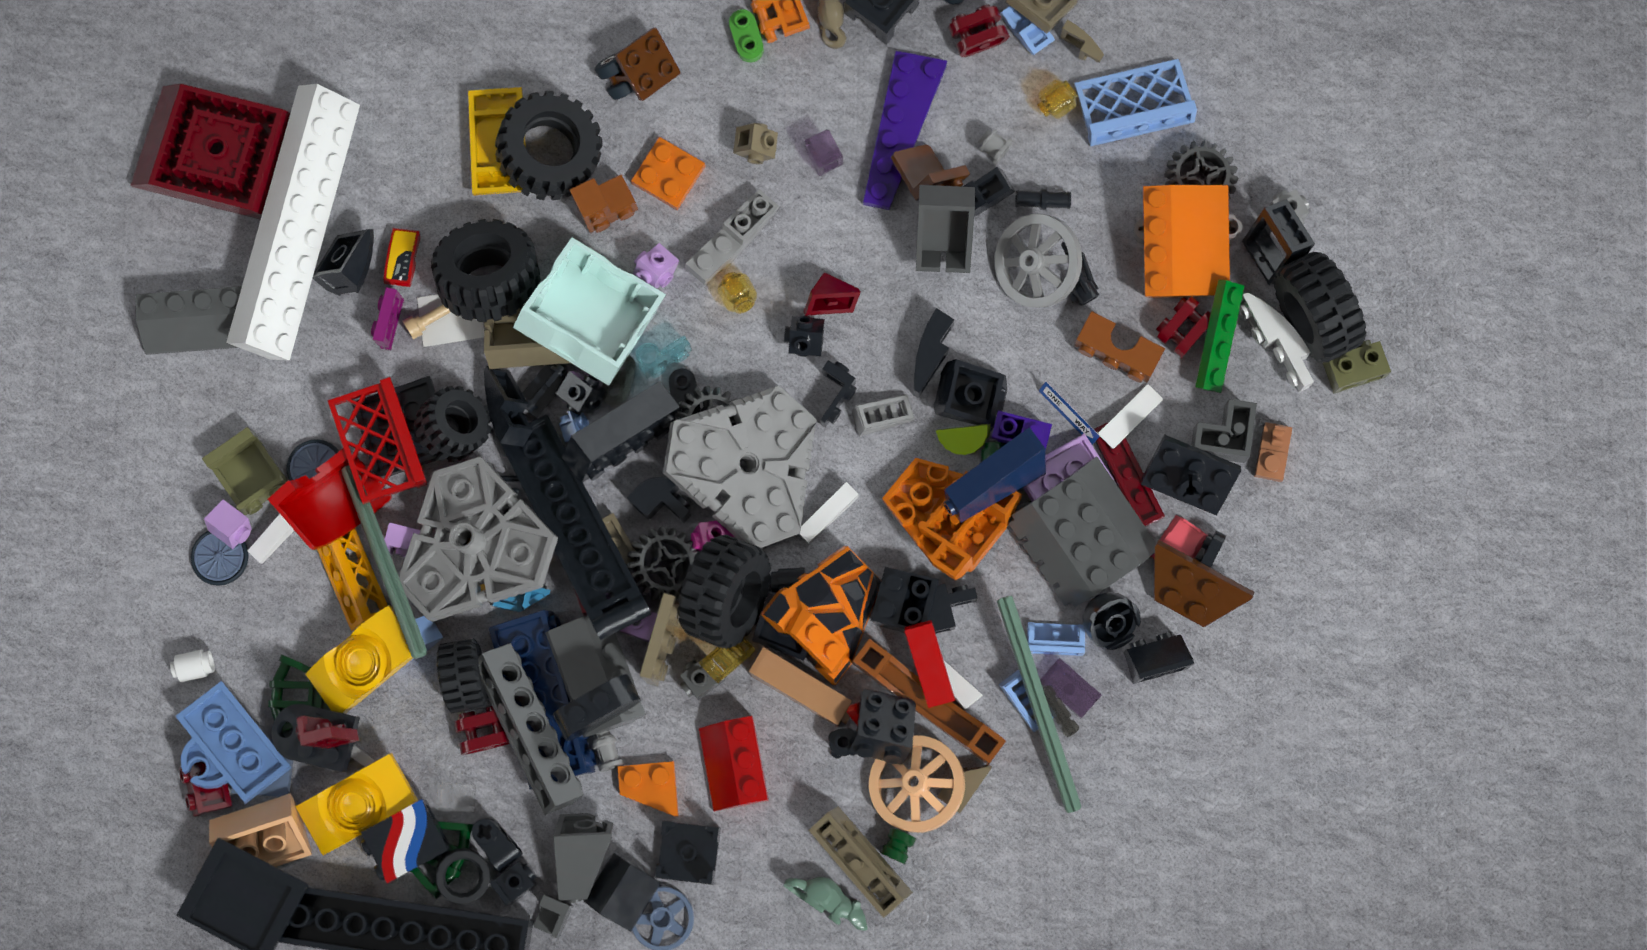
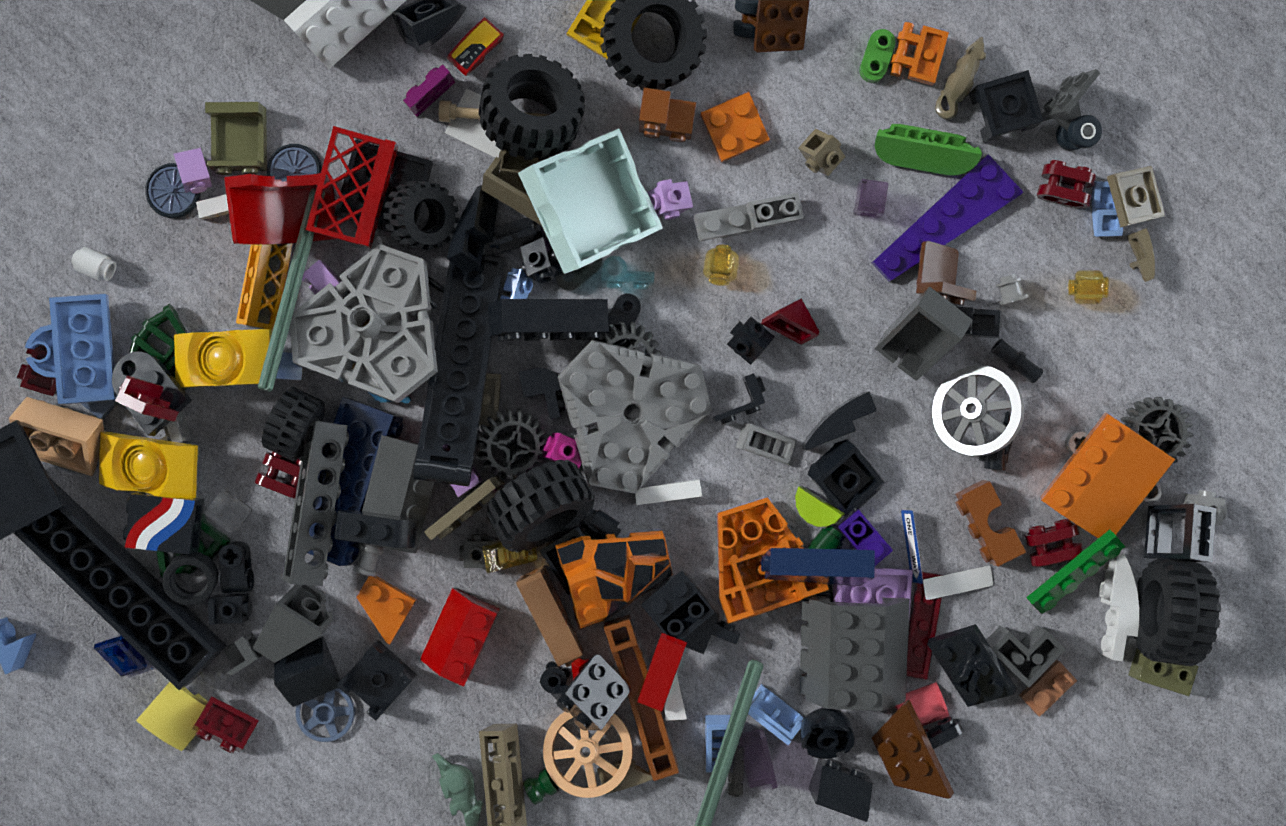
camera: 25 degrees right, 10 degrees up
(841, 82) = (926, 150): none -> bright green brick
(1145, 120) = (1142, 354): light blue fence -> none

